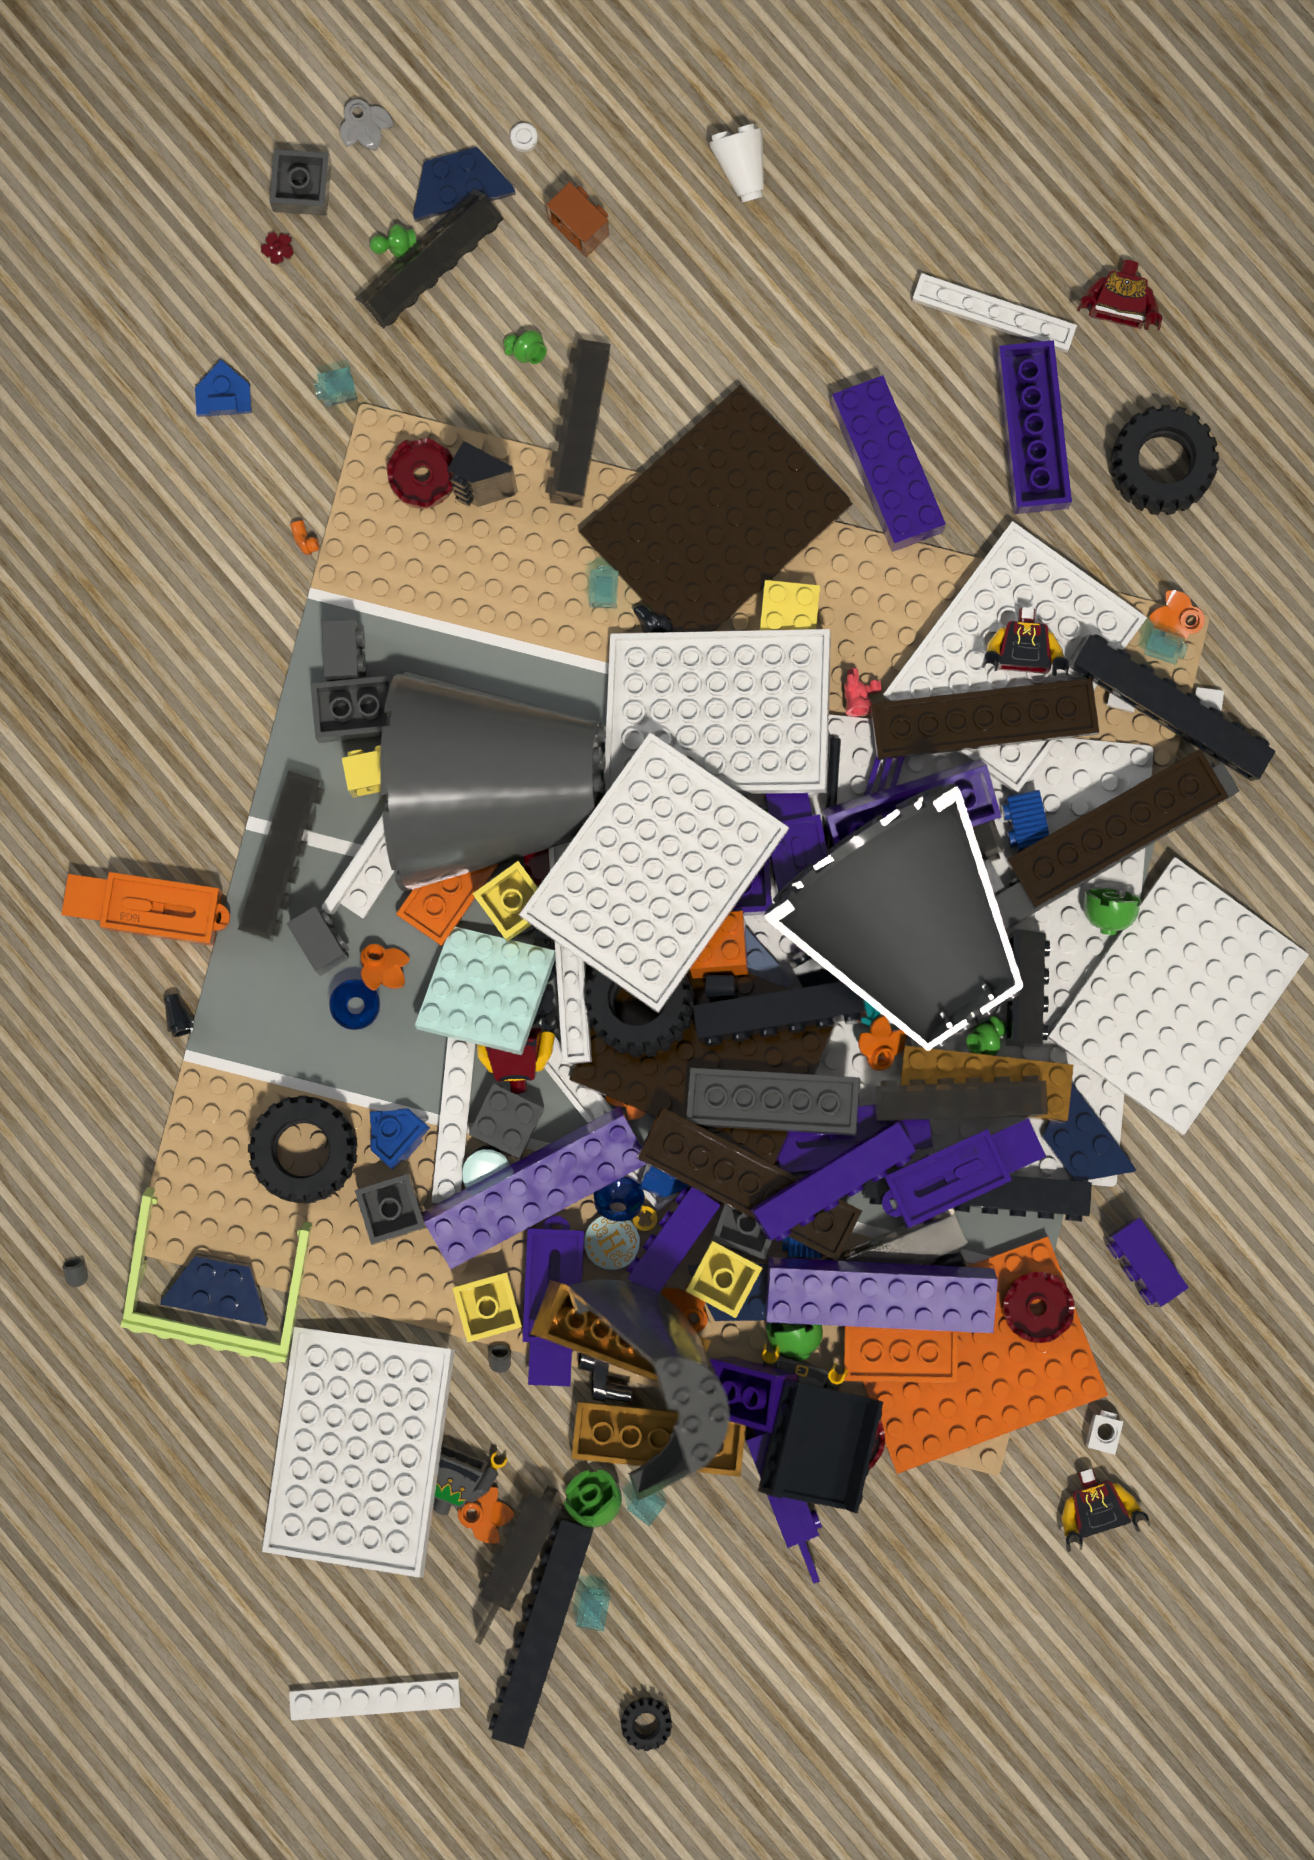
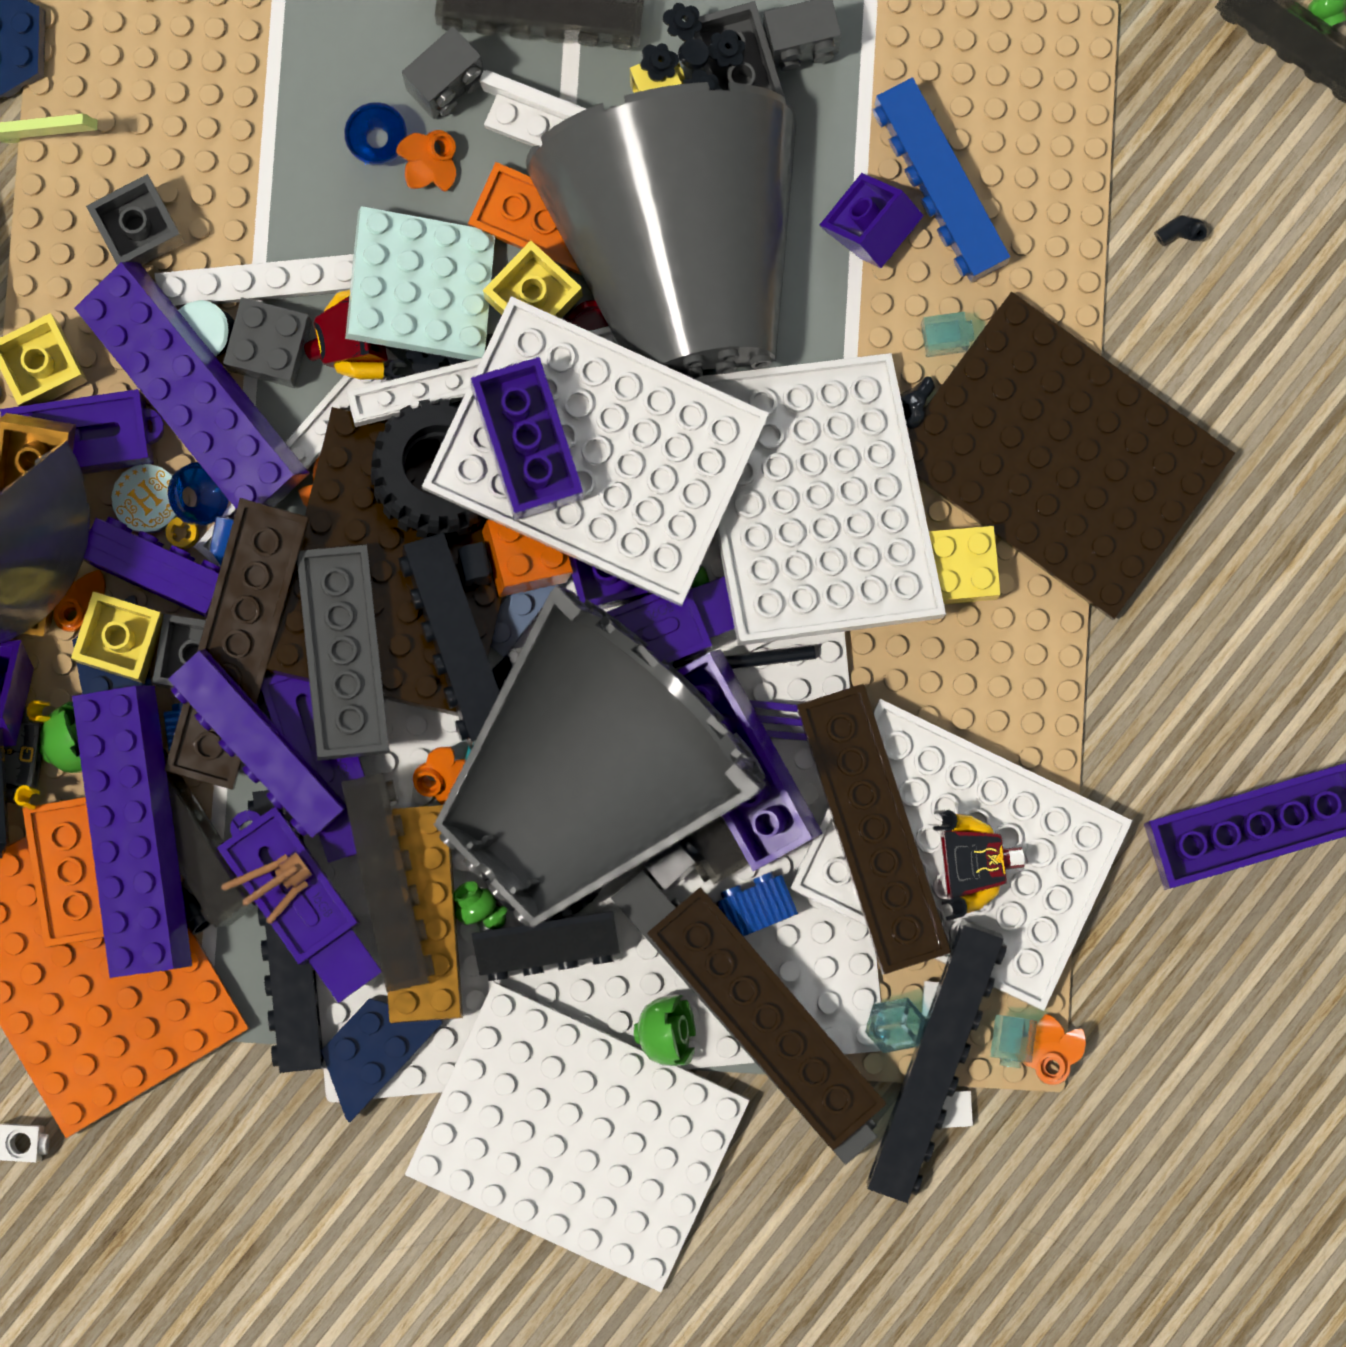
camera: 75 degrees right, 0 degrees up
(266, 1137) = (180, 62): black tyre -> none
(345, 738) = (692, 52): none -> black plant
(396, 1135) = (227, 215): blue plate -> none
(407, 460) = (1049, 64): dark red plate -> none
(479, 568) = (941, 180): none -> blue brick
(480, 477) = (1047, 147): black slope -> none
(500, 628) = (872, 219): none -> dark purple slope
(526, 348) = (1228, 185): bright green animal -> none
(552, 388) = (1182, 227): none -> black arm
(579, 423) = (1146, 265): clear smoke brick -> none
(639, 920) = (526, 438): none -> dark purple brick
(857, 694) = (877, 669): coral piece -> none
(887, 463) = (1173, 652): dark purple brick -> none
(941, 1172) = (290, 872): none -> medium nougat plant
(1058, 1303) = (128, 1029): dark red plate -> none
(1138, 732) = (895, 1025): none -> clear light blue brick
(1146, 1263) = (234, 1155): dark purple brick -> none
(1176, 426) = (1296, 996): black tyre -> none

